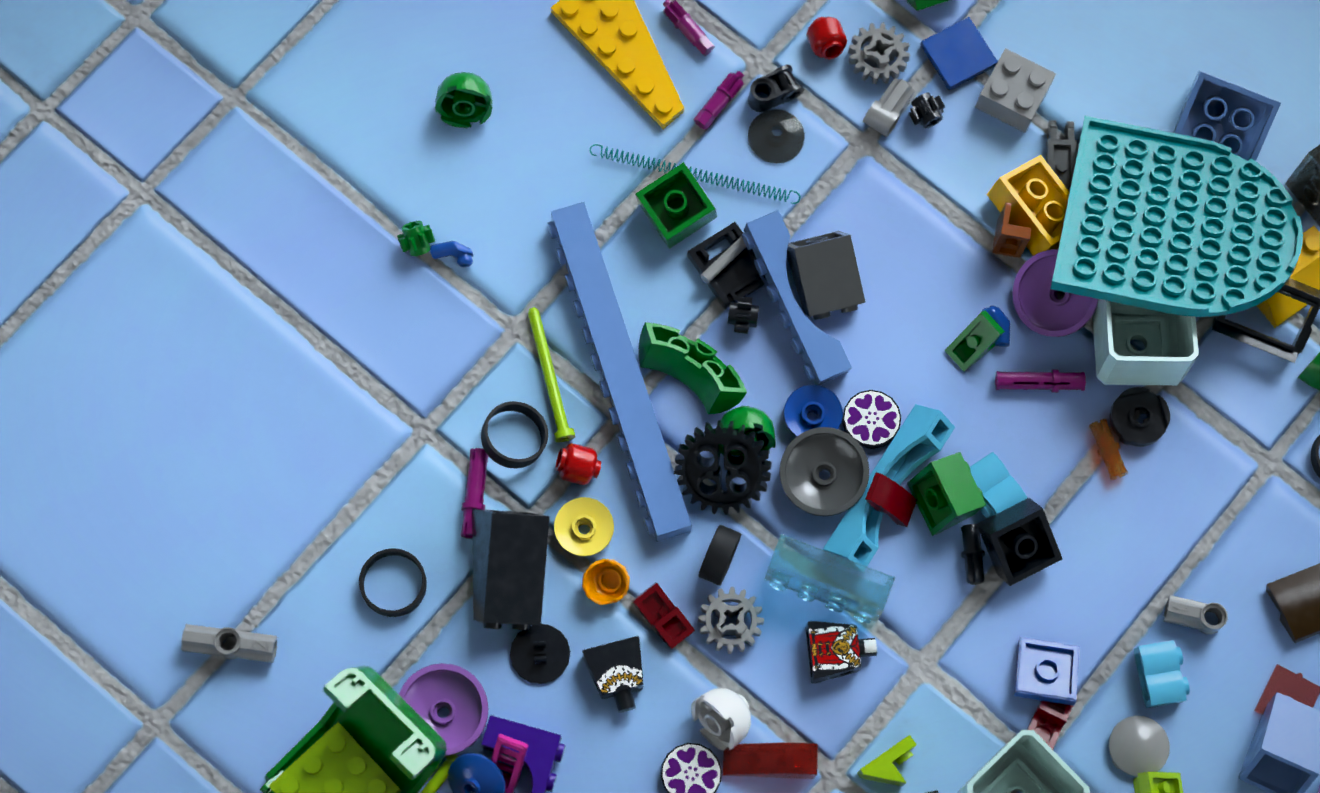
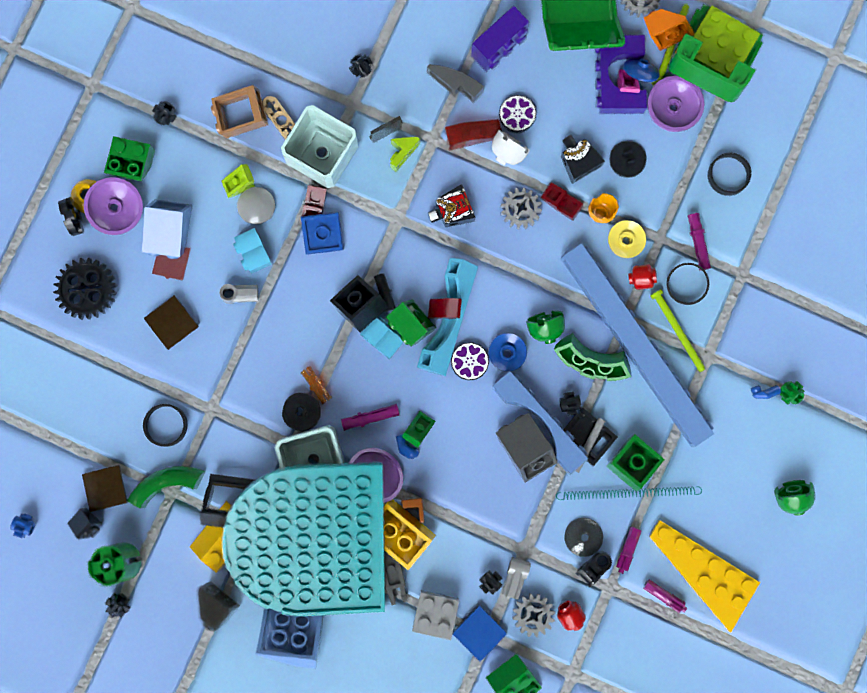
camera: 165 degrees right, 10 degrees up
(210, 640) = (823, 107): light grey piece -> none
(508, 567) = (665, 199): black slope -> none
(695, 468) = (554, 296): black gear -> none
(719, 555) = (540, 243): black tyre -> none
(829, 451) = (491, 301): dark grey dish -> none
(829, 579) = (470, 246): clear light blue piece -> none

